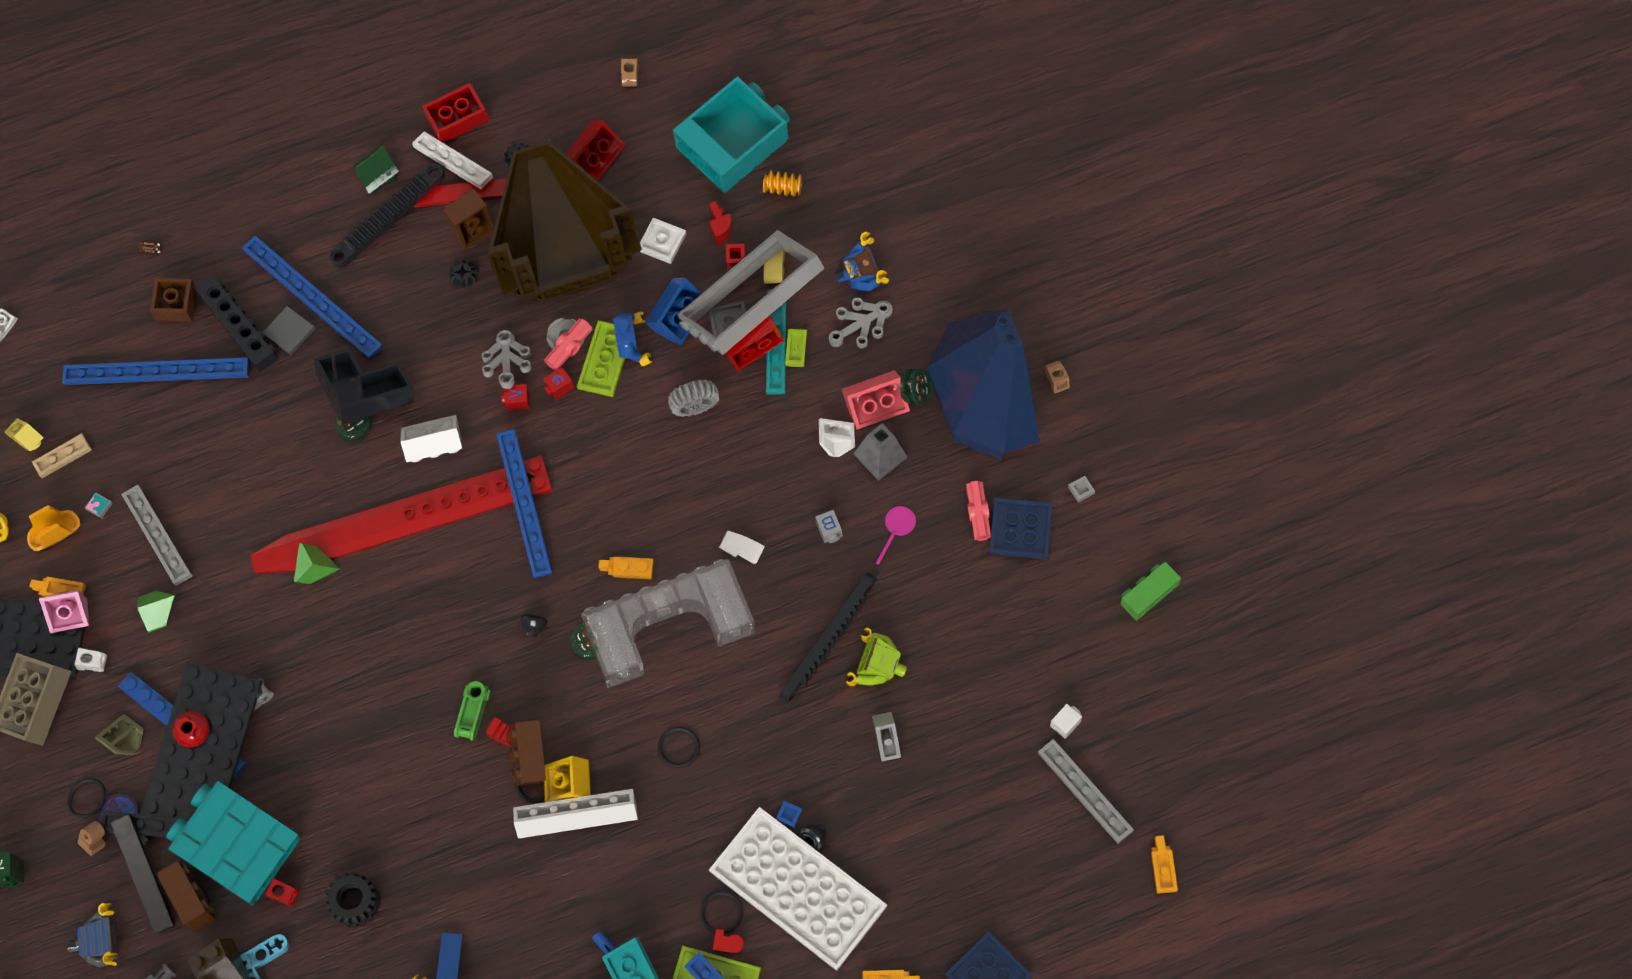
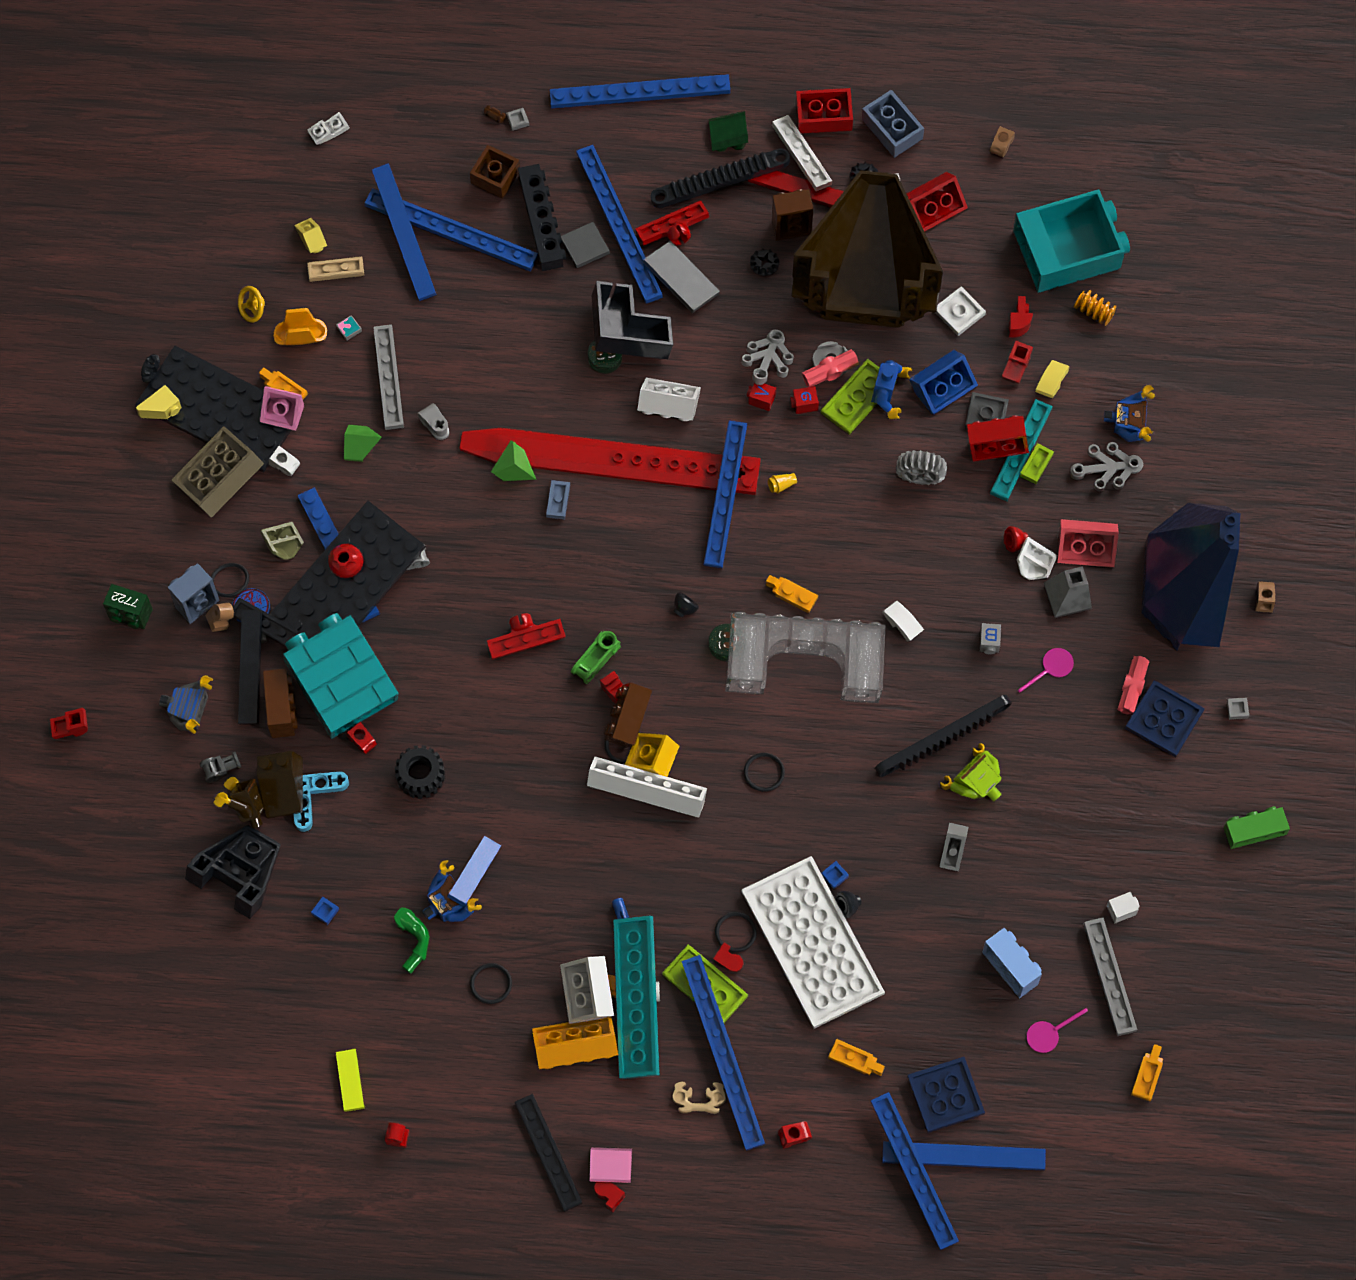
camera: 20 degrees right, 0 degrees up
(55, 828) = (193, 593): none -> sand blue brick
(111, 393) = (404, 232): none -> blue tile
(174, 242) = (517, 119): none -> light grey tile
(219, 557) = (434, 421): none -> light grey piece
(277, 168) = (640, 91): none -> blue plate
(363, 276) = (673, 225): none -> red plate
(369, 578) = (558, 499): none -> sand blue plate
(392, 321) = (681, 277): none -> tile
(395, 722) = (525, 636): none -> red plate
(523, 98) = (892, 123): none -> sand blue brick
(569, 470) = (781, 482): none -> yellow cone
(762, 309) = (1021, 413): light grey door -> none
(808, 425) = (1014, 538): none -> red brick
(915, 386) = (1129, 547): clear green head -> none
(991, 820) = (1012, 962): none -> light blue brick
(1051, 875) = (1044, 1036): none -> dark pink piece

